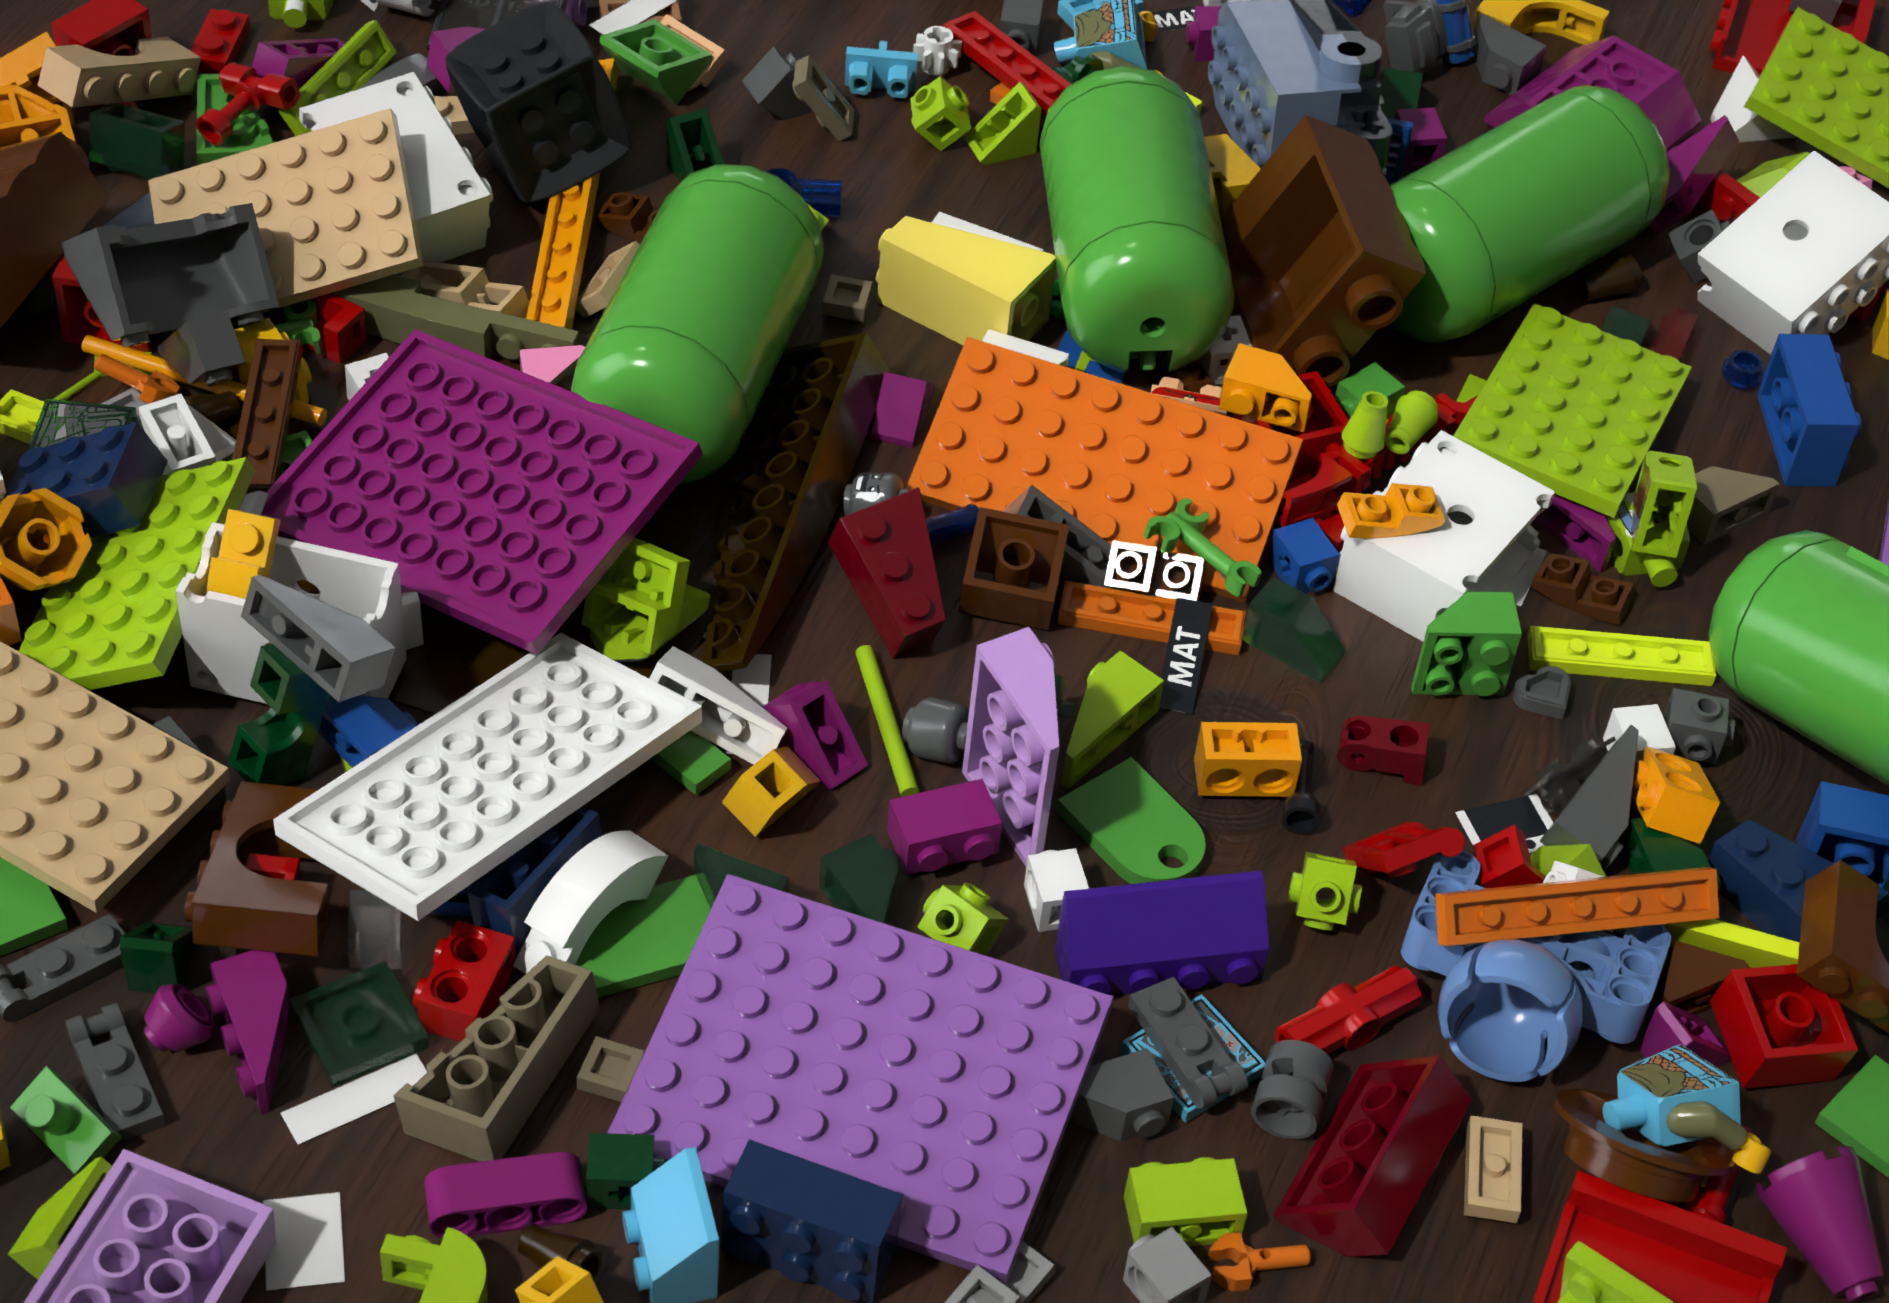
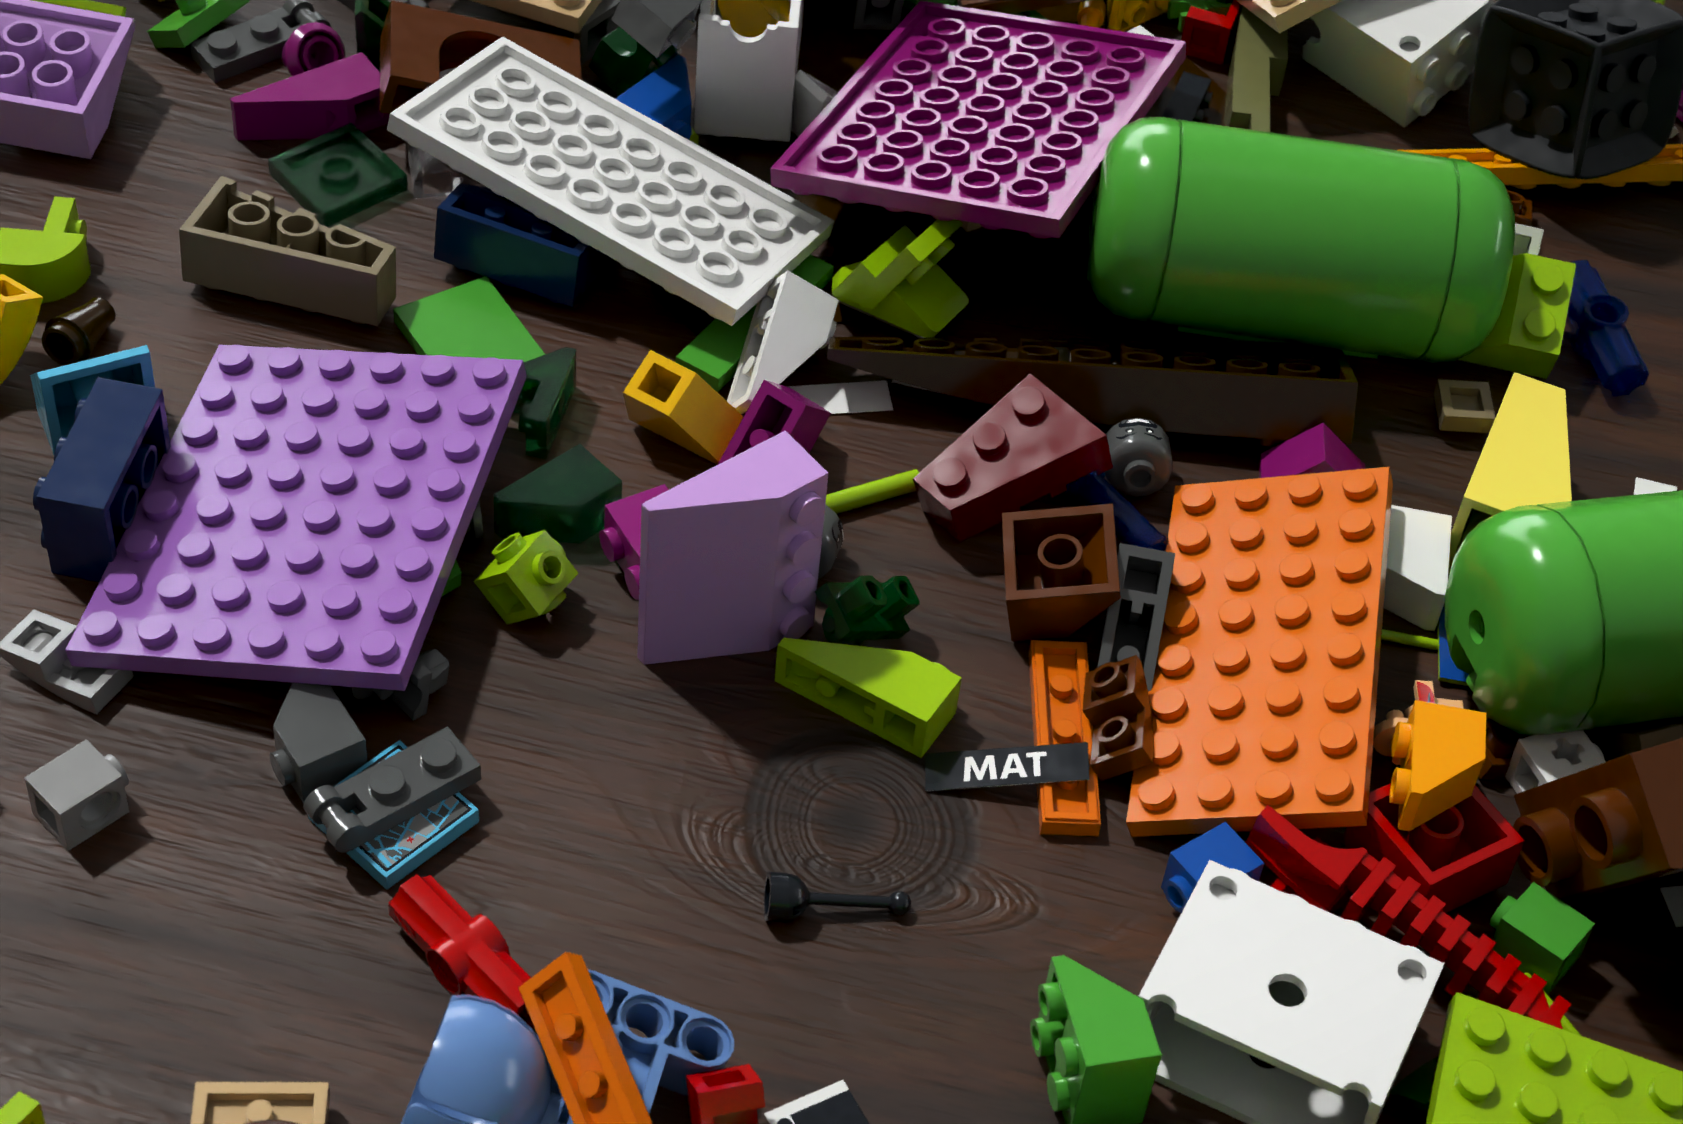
camera: 80 degrees right, 0 degrees up
(307, 1242) = (101, 178): white sticker -> none
(352, 1099) = (249, 177): white sticker -> none
(459, 979) = (391, 216): red brick -> none
(470, 287) = (1306, 100): tan slope -> none
(506, 1194) = (144, 285): magenta beam -> none
(584, 891) = (493, 268): white arch -> none
(609, 1069) = (302, 331): dark tan plate -> none
(616, 1166) = (176, 353): dark green brick -> none
(691, 144) = (1630, 246): dark green slope -> none
(1047, 879) = (601, 662): white brick -> none
(1134, 825) = (728, 738): bright green tile -> none
(1159, 930) = (532, 753): dark purple slope -> none
(1188, 530) = (1168, 709): bright green bar -> none
(1193, 1197) = (177, 805): lime brick -> none
(1247, 759) = (833, 820): light orange brick -> none
(1251, 1260) = (119, 886): orange bar -> none
(1292, 630) = (1077, 869): clear green slope -> none
(1292, 1089) = (341, 894): dark grey wheel -> none
(1322, 872) = (647, 910): lime brick -> none
(1366, 428) = (1412, 877): lime cone -> none
(1375, 1155) = (258, 990): dark red slope -> none
(1385, 746) = (911, 986): dark red leg -> none
(1399, 513) = (1244, 899): light orange slope -> none
(1401, 846) = (726, 984): red plate -> none
(1411, 420) = (1460, 940): lime cone -> none

